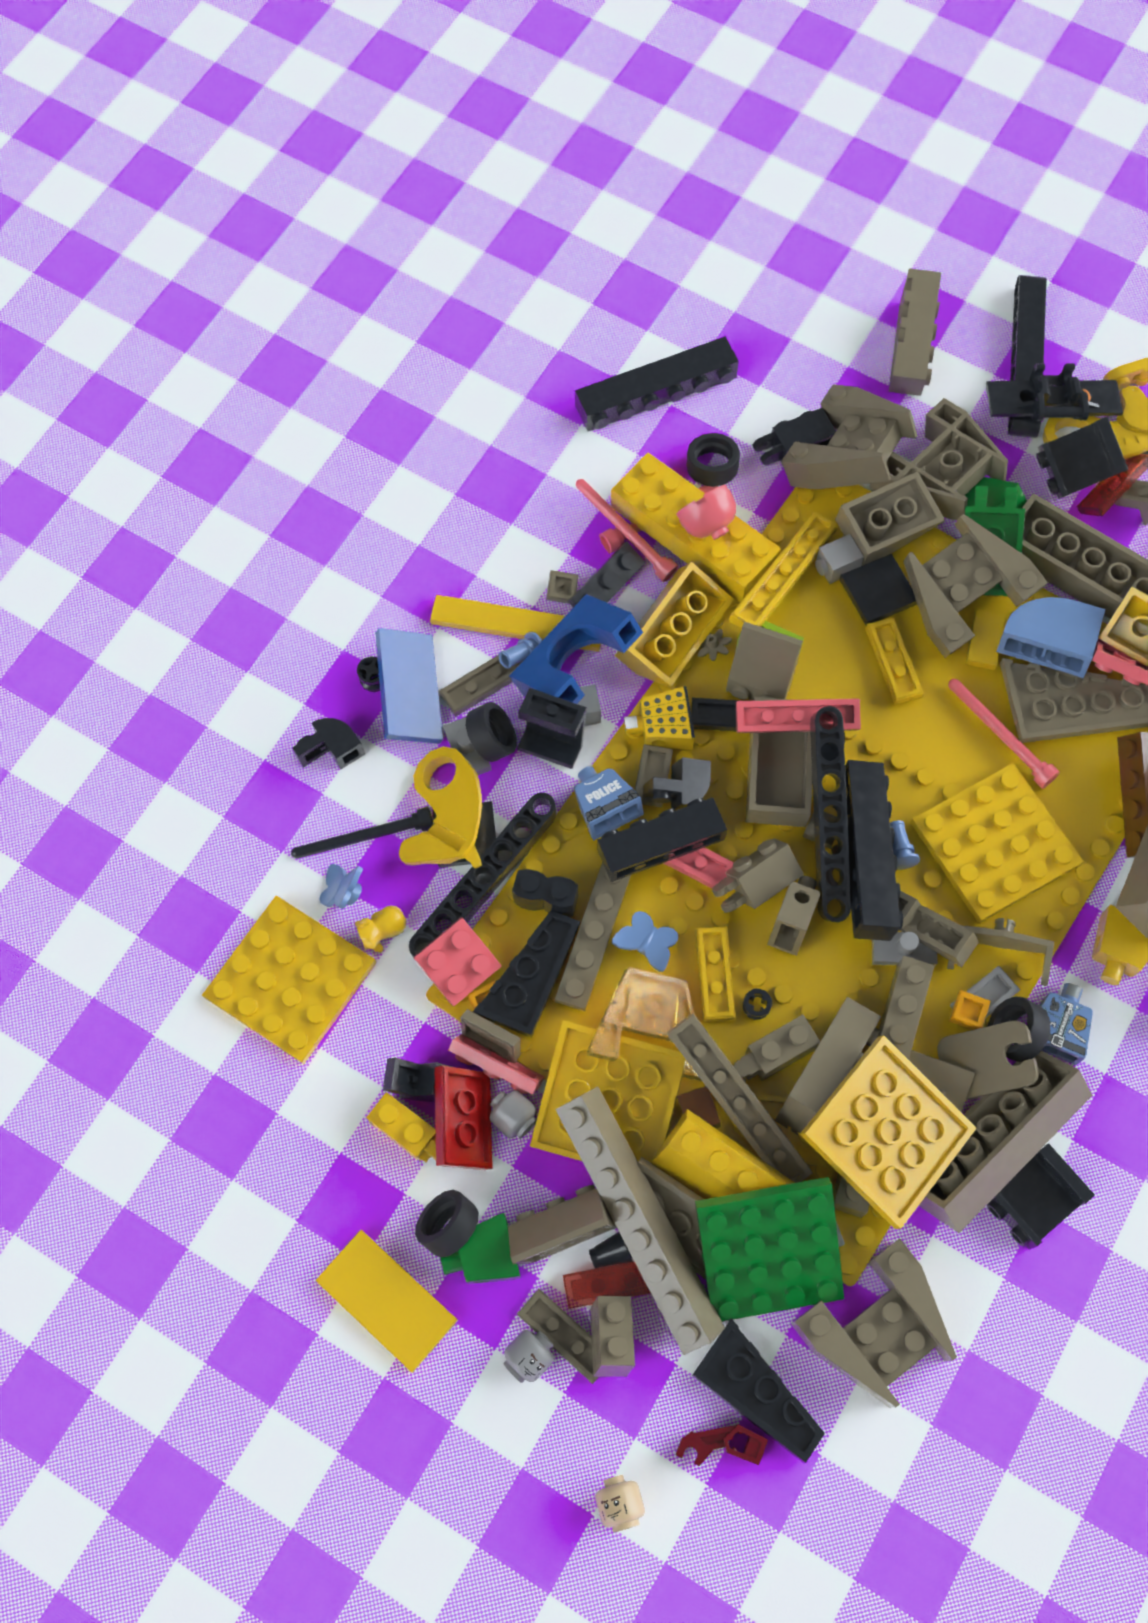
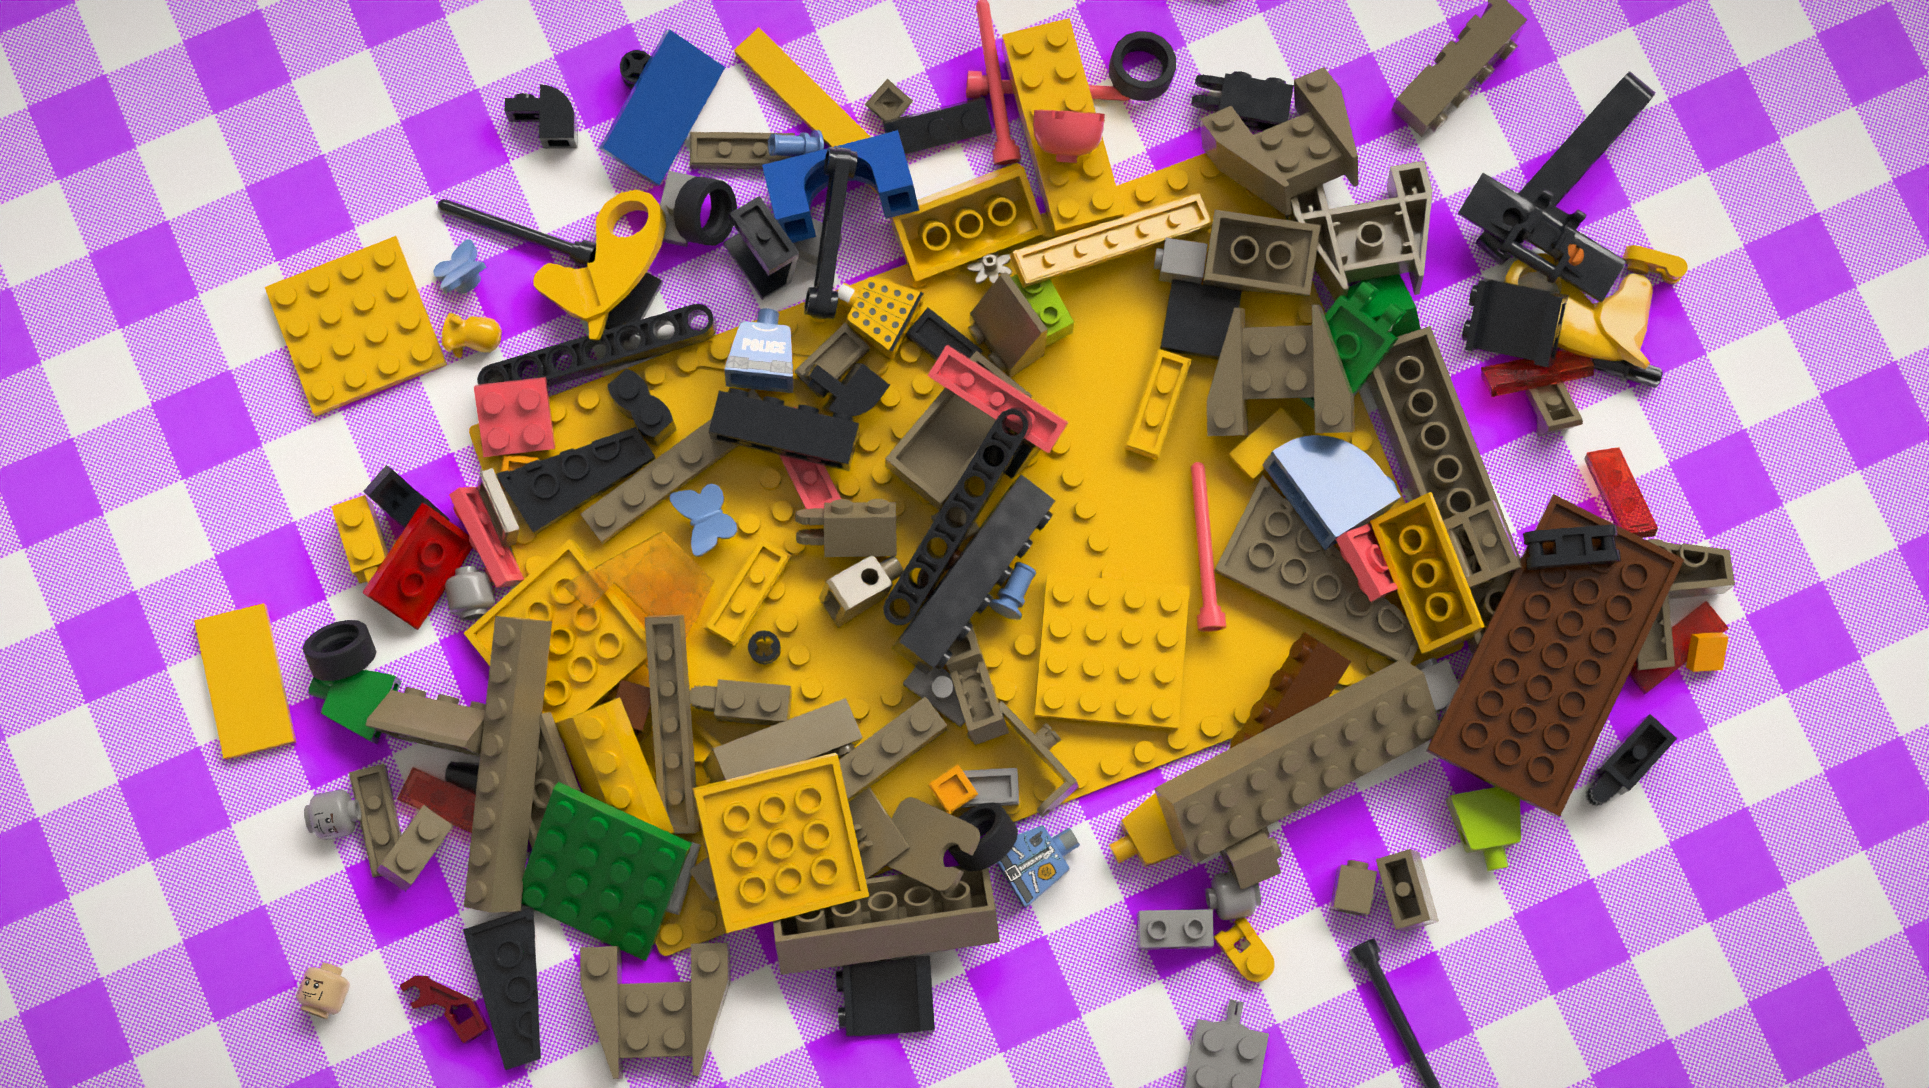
camera: 30 degrees right, 10 degrees up
(617, 734) = (821, 299): none -> black piece

